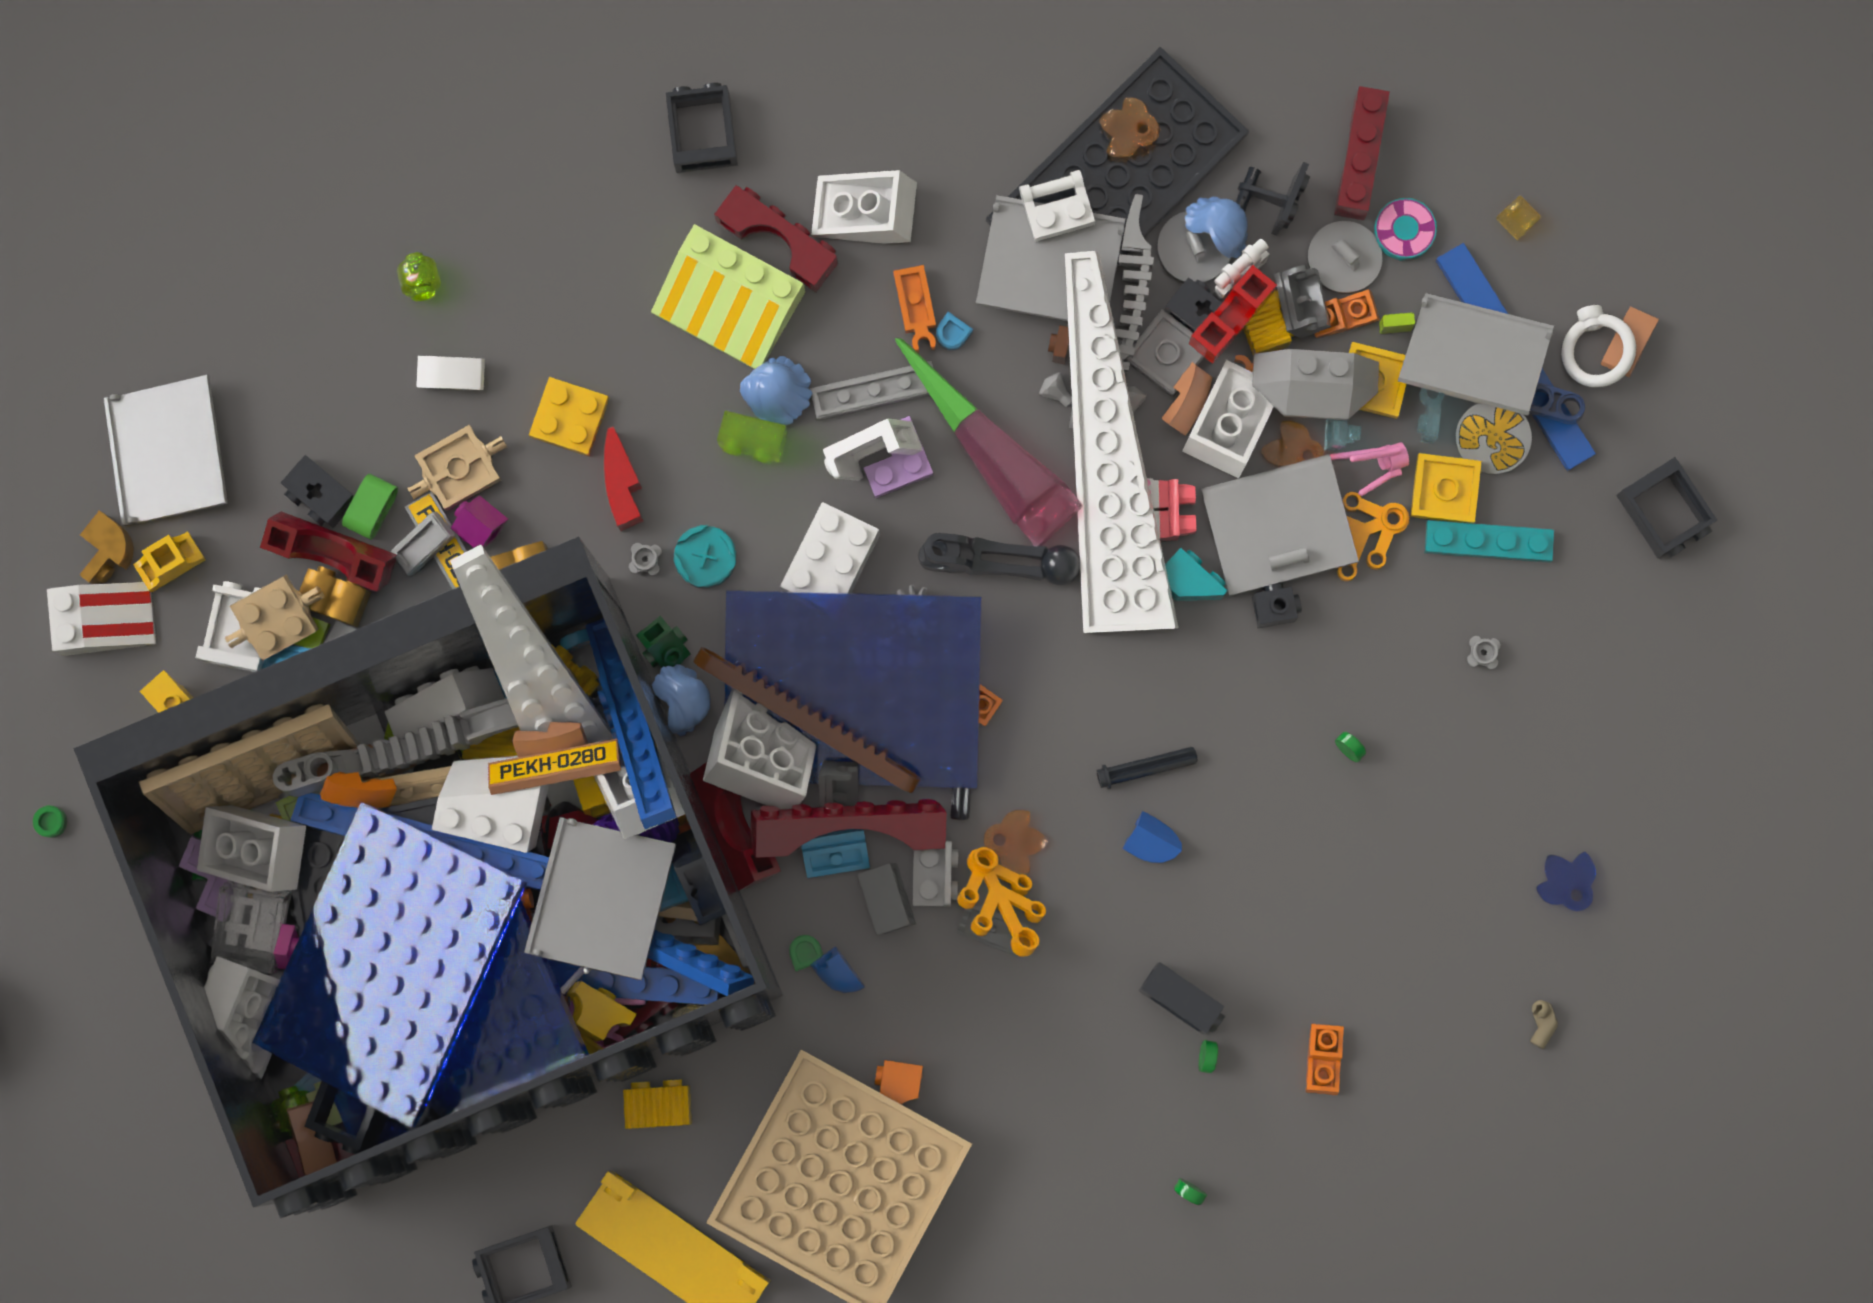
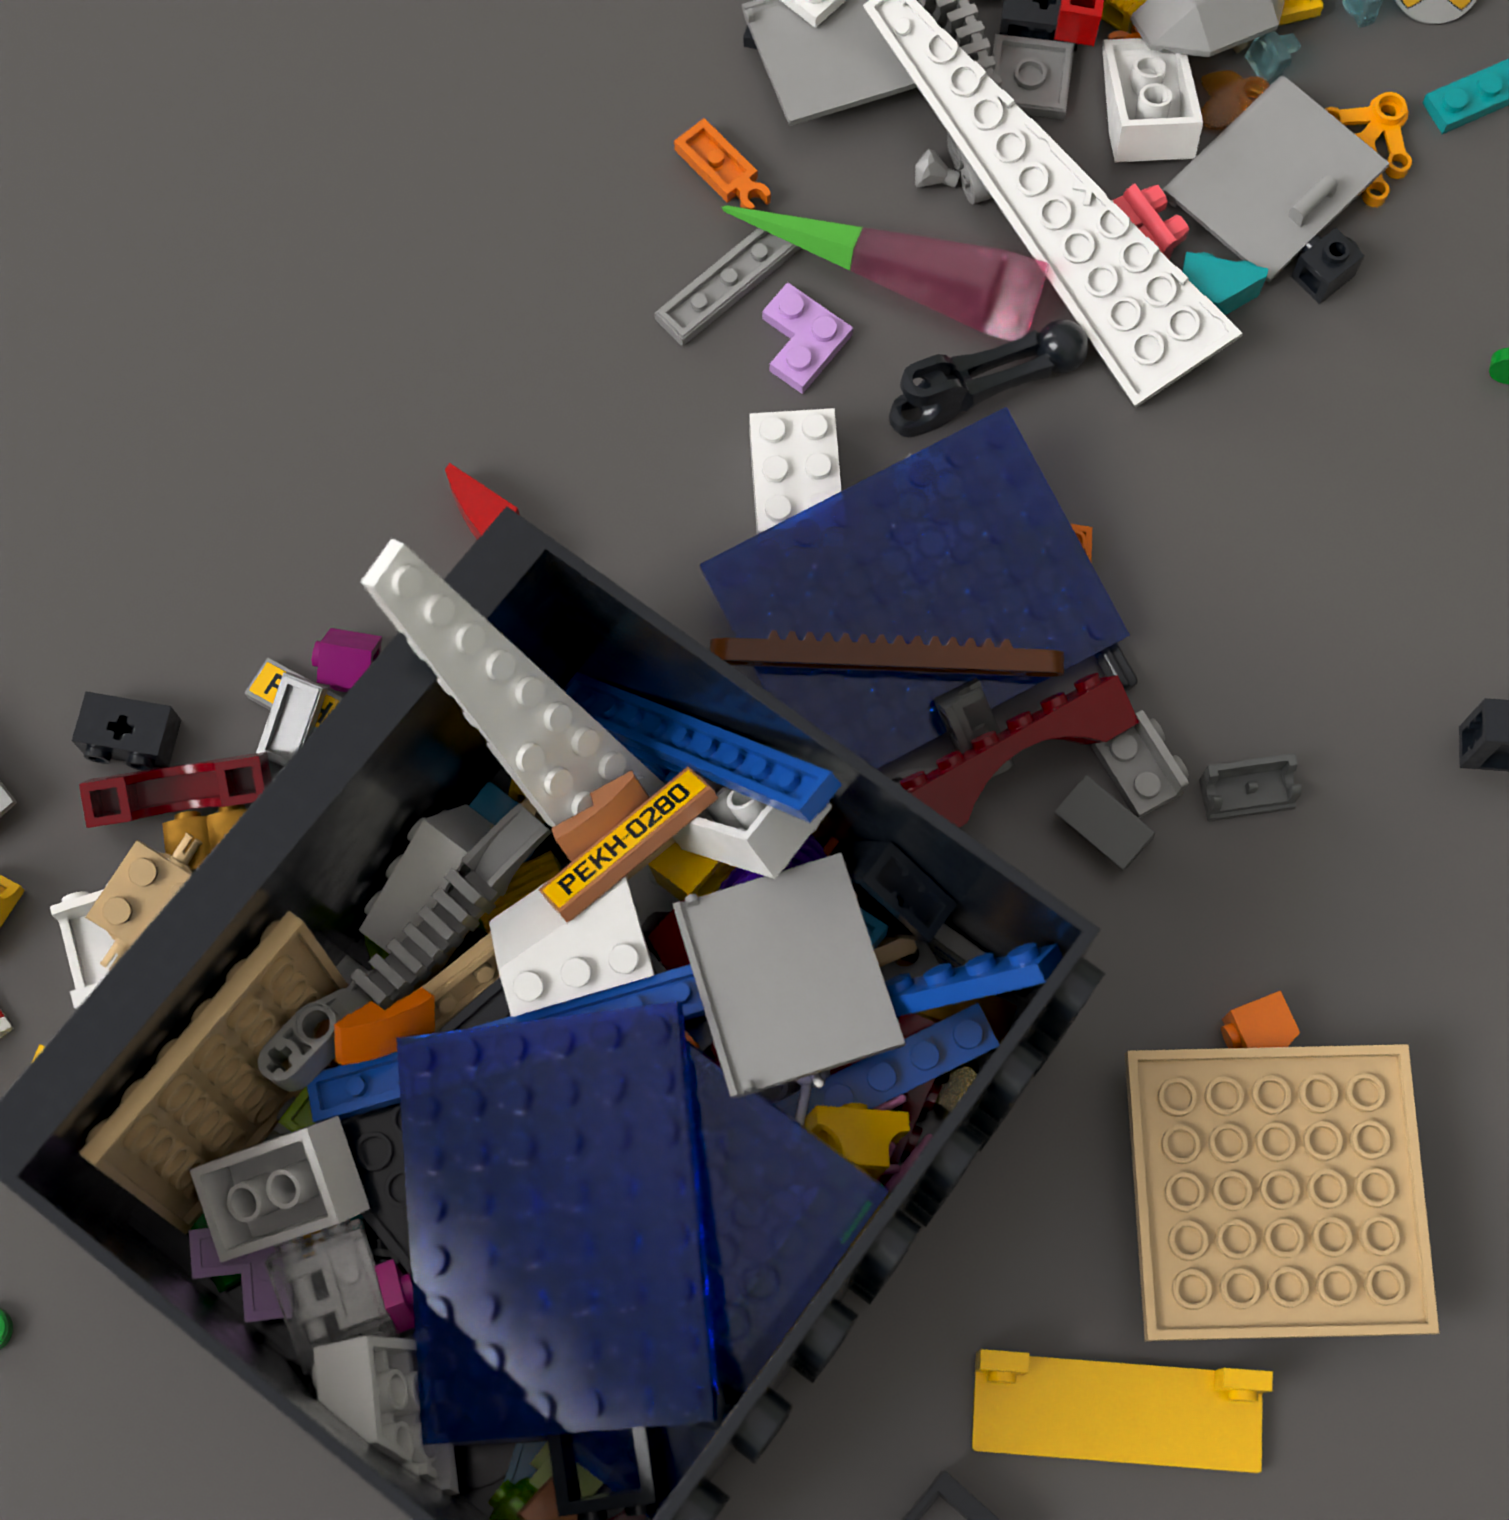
camera: 35 degrees left, 10 degrees down
(370, 506) = (201, 714): bright green beam -> none
(418, 277) = (116, 426): clear neon green head -> none
(450, 373) = (216, 511): white slope -> none
(457, 468) = (285, 614): tan plate -> none
(569, 416) = (388, 490): yellow plate -> none
(657, 1106) = (984, 1234): yellow brick -> none
(701, 158) = (381, 136): black window -> none
(705, 556) = (644, 558): teal tile -> none
(727, 297) = (500, 263): yellowish green slope -> none
(745, 215) = (471, 168): dark red arch -> none
(752, 437) = (621, 393): clear neon green brick -> none
(759, 755) = (872, 719): white wedge -> none
(777, 390) = (619, 334): medium blue hair -> none
(836, 853) = (1012, 801): dark azure plate -> none
(837, 972) = (1114, 943): blue brick -> none
(865, 207) = (600, 94): white slope -> none
(893, 434) = (764, 320): white panel -> none
(952, 332) = (780, 174): dark azure tile -> none
(985, 866) = (1197, 720): light orange plant -> none
(1020, 841) = (1211, 673): clear orange plate -> none
(1059, 345) = (910, 122): reddish brown plate -> none
(1146, 767) = (1266, 545): black axle -> none
(1152, 840) = (1365, 587): blue brick -> none
(1193, 390) = (1086, 92): nougat slope -> none
(1389, 457) = (1340, 54): bright pink plant -> none
(1445, 488) = (1422, 52): yellow plate -> none

